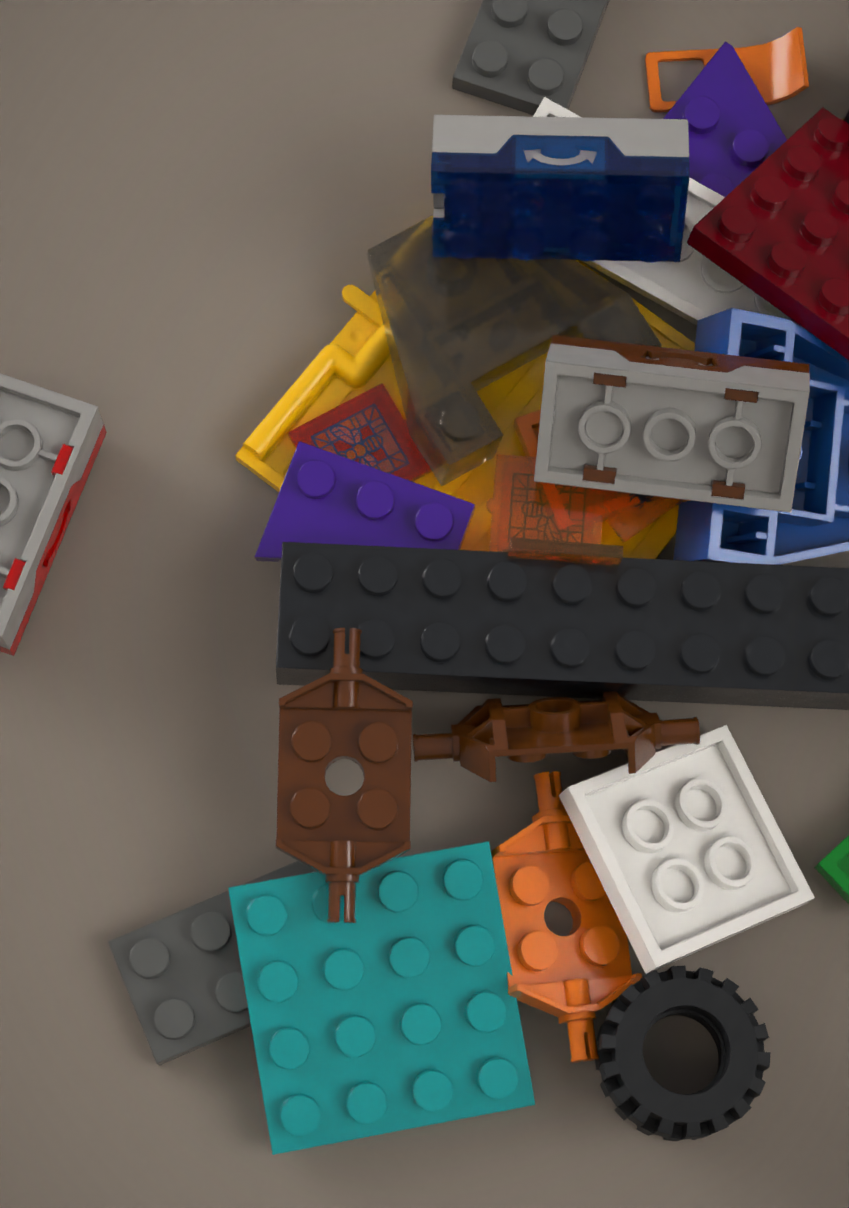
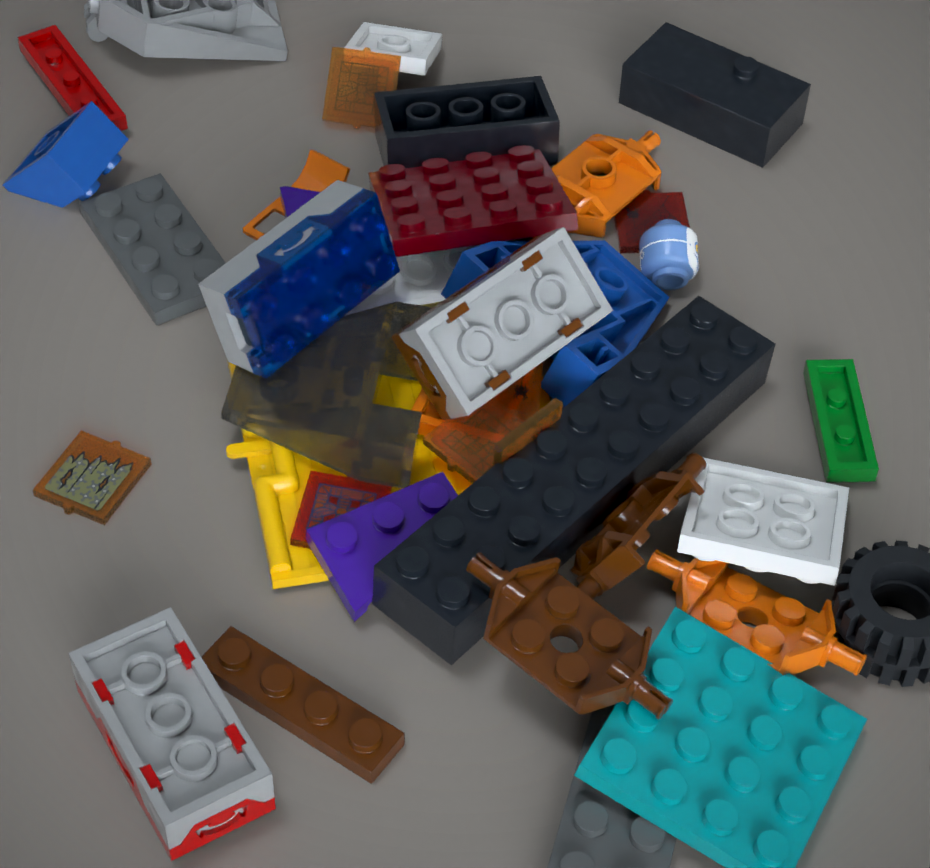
camera: 50 degrees left, 25 degrees down
(134, 587) = (303, 705): none -> reddish brown plate
(224, 199) = (92, 477): none -> piece

